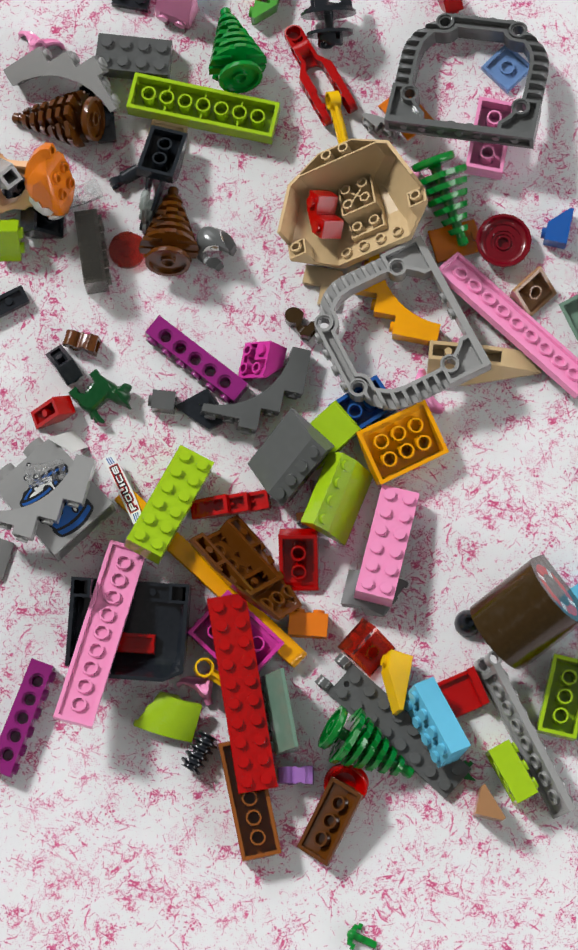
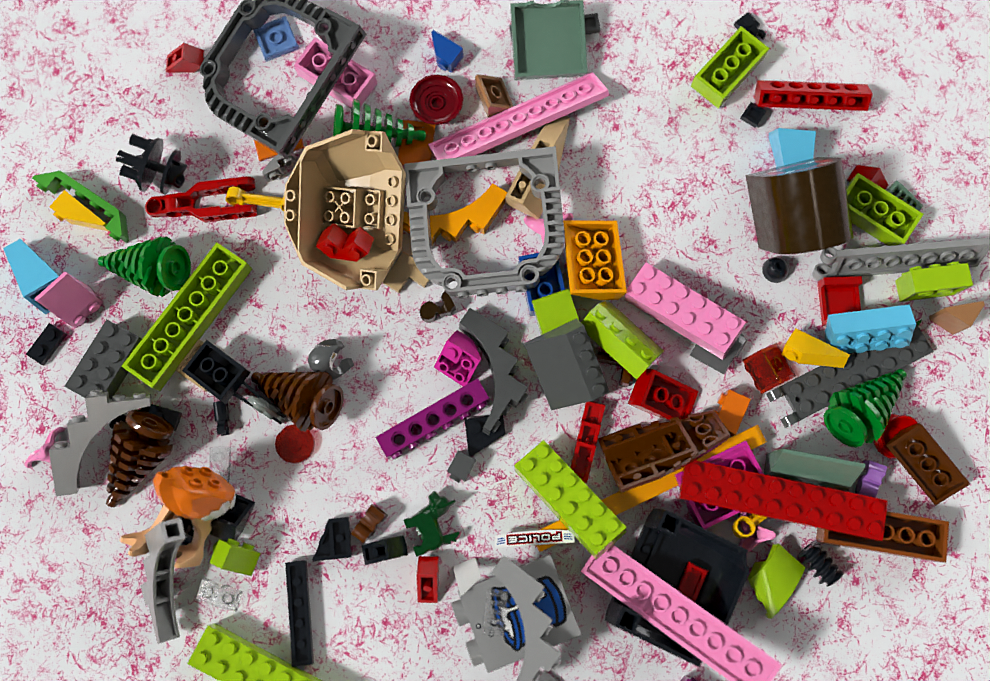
camera: 70 degrees left, 0 degrees up
(56, 319) = (335, 541): none -> black wing
(92, 251) = (280, 477): clear smoke brick -> none

